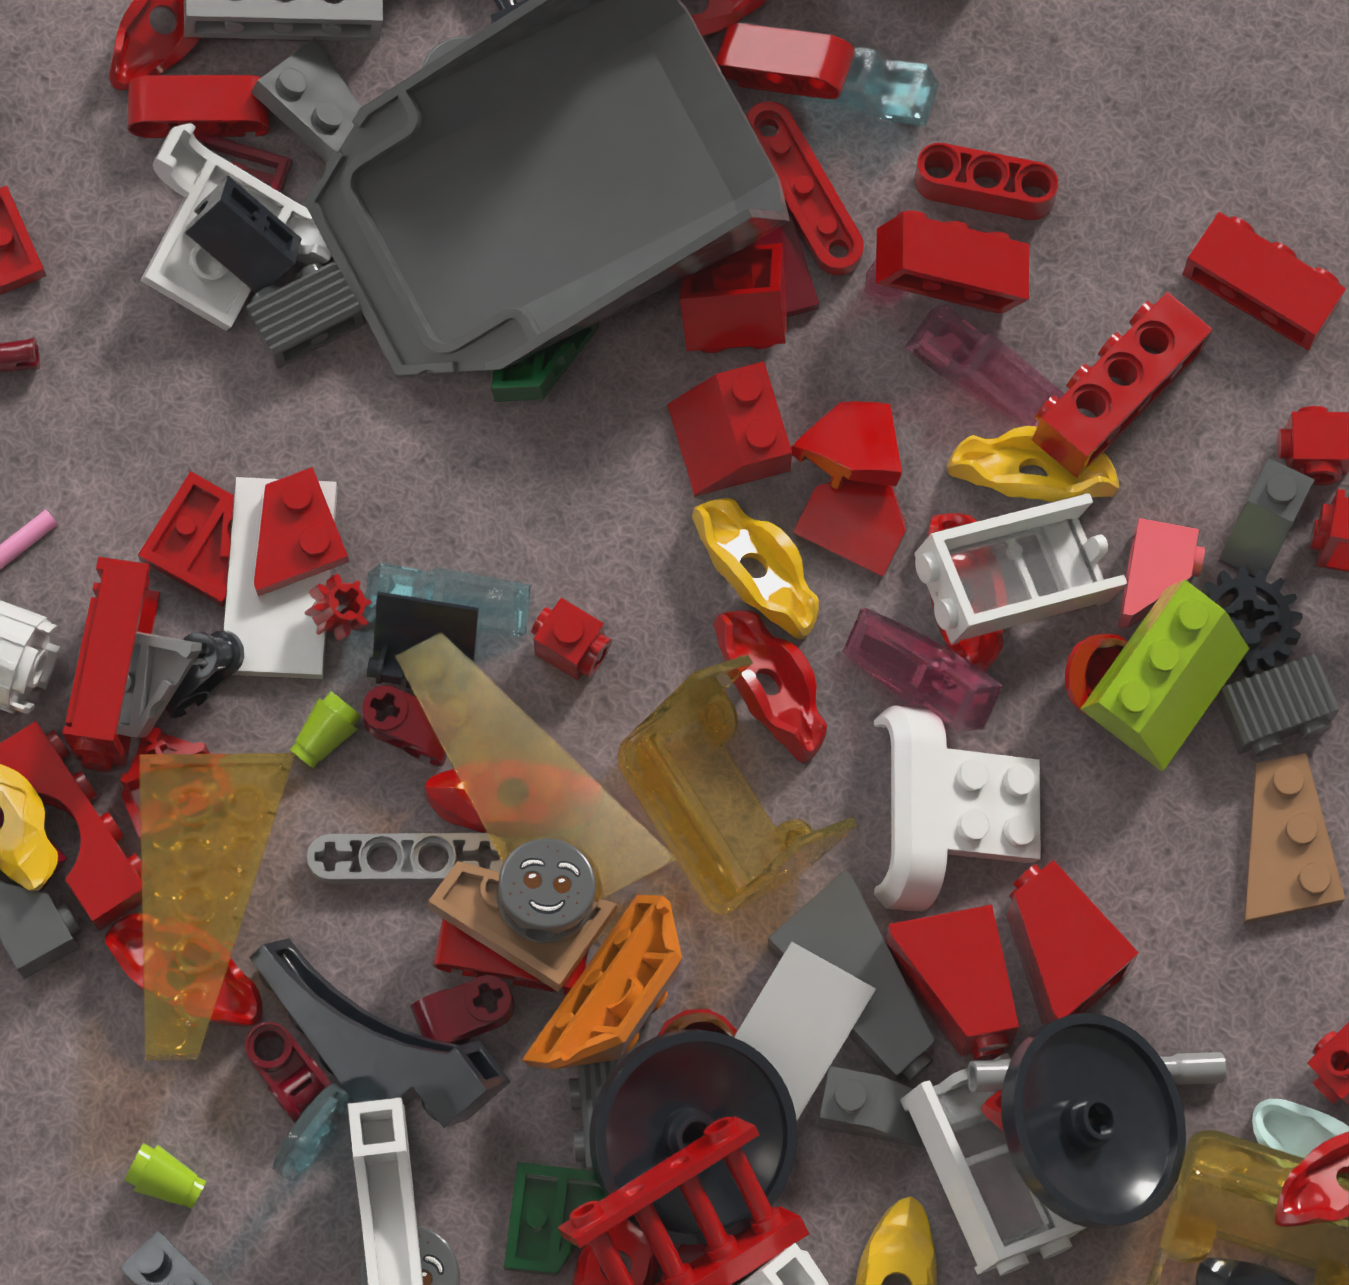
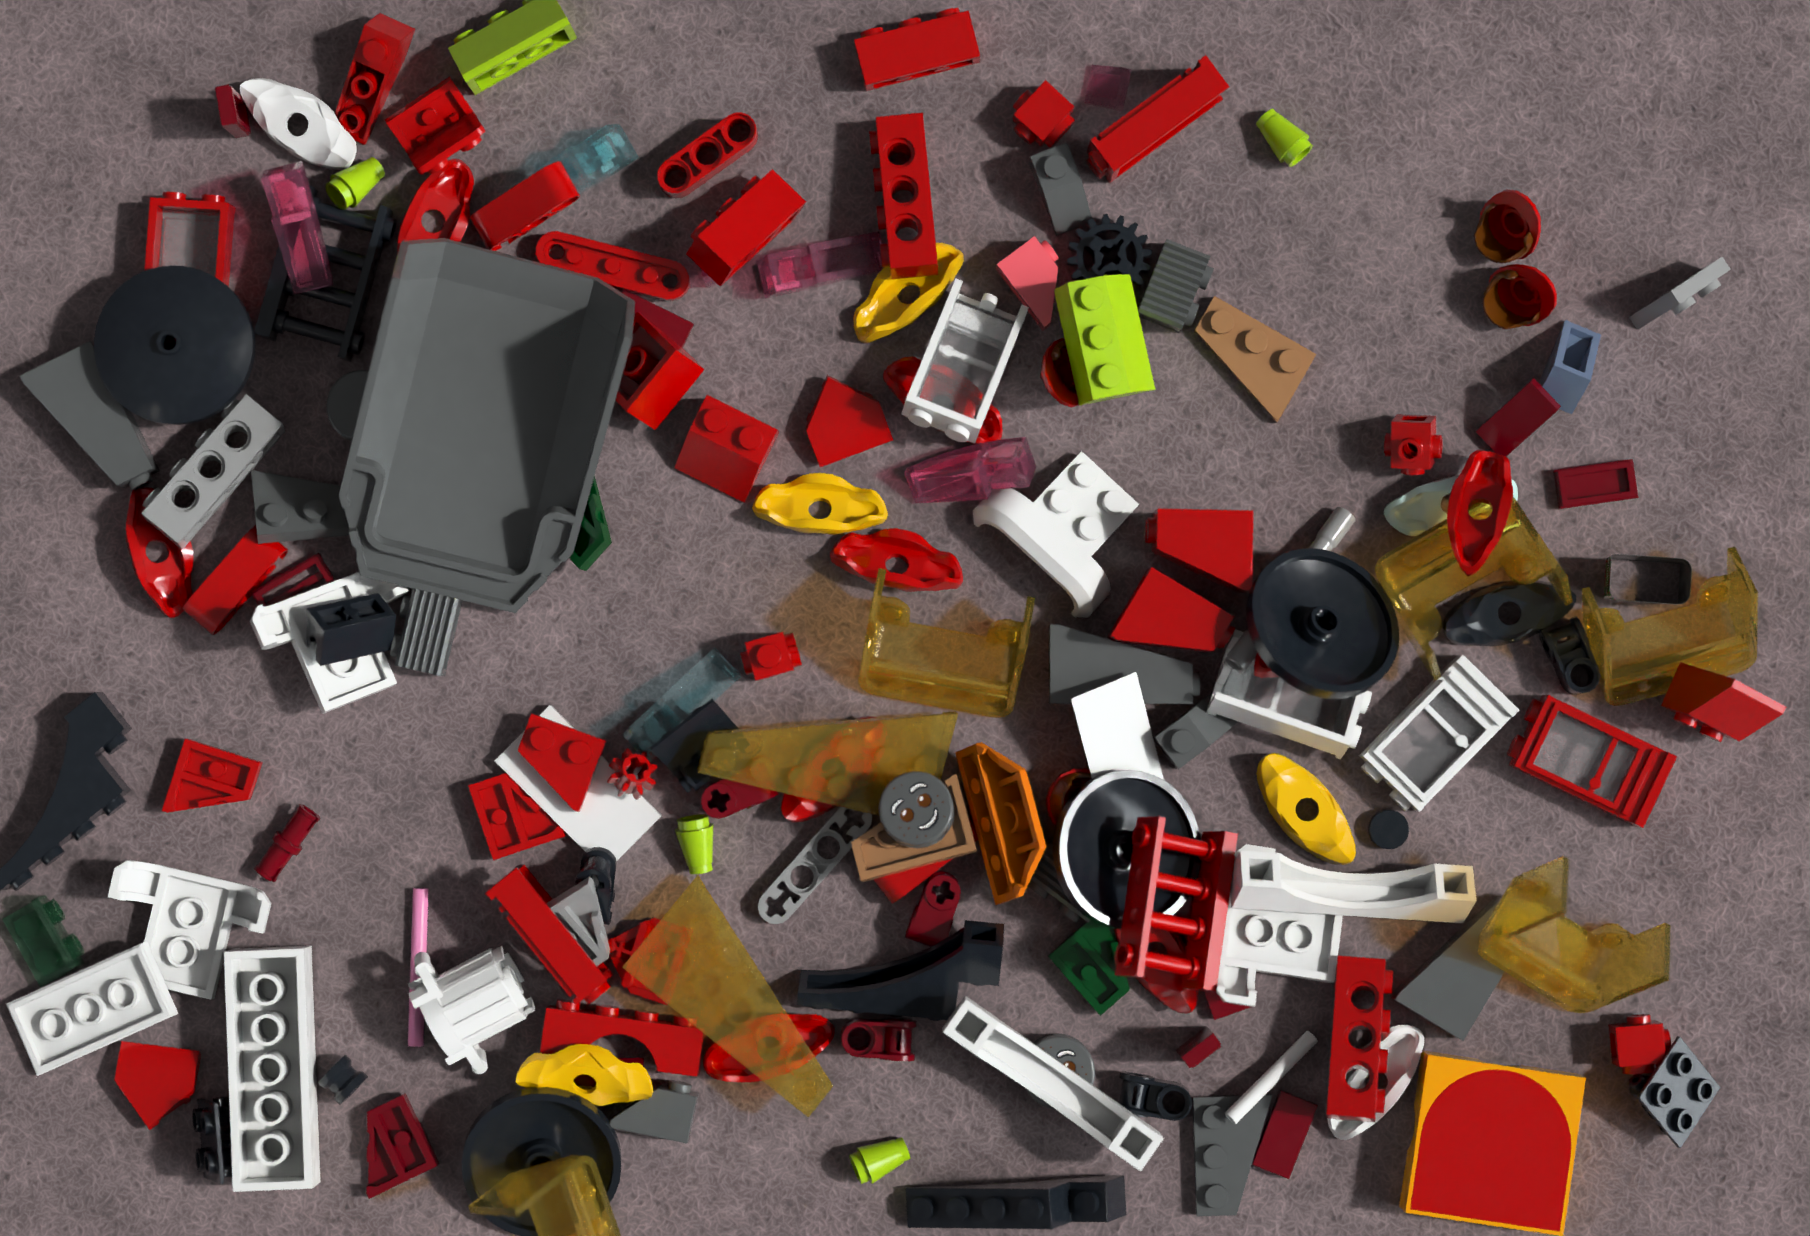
camera: 45 degrees left, 15 degrees up
(310, 1133) = (931, 1058): clear light blue tile -> none
(853, 443) = (801, 385): red slope -> none

